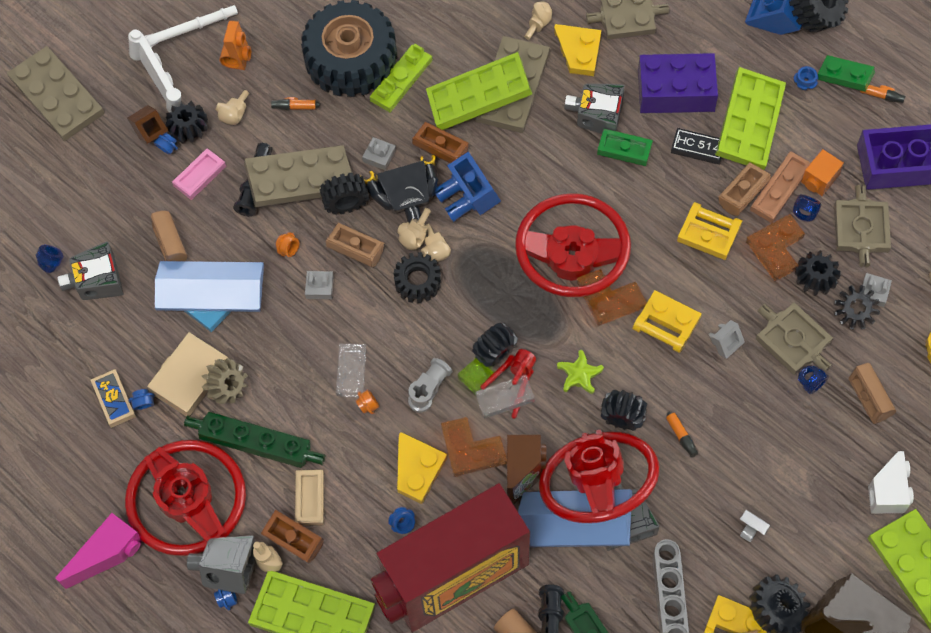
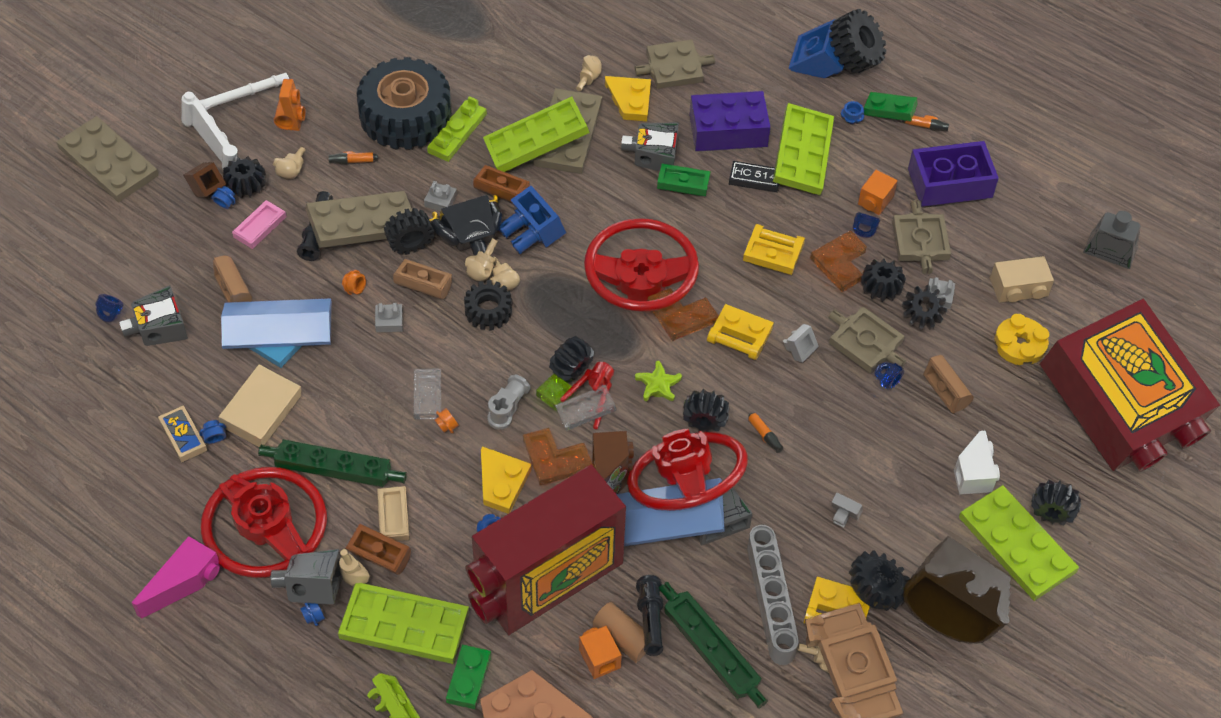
camera: 10 degrees left, 10 degrees down
(226, 371) = (298, 407): dark tan gear -> none
(743, 189) = (803, 210): medium nougat brick -> none
(780, 187) = (838, 209): nougat tile -> none

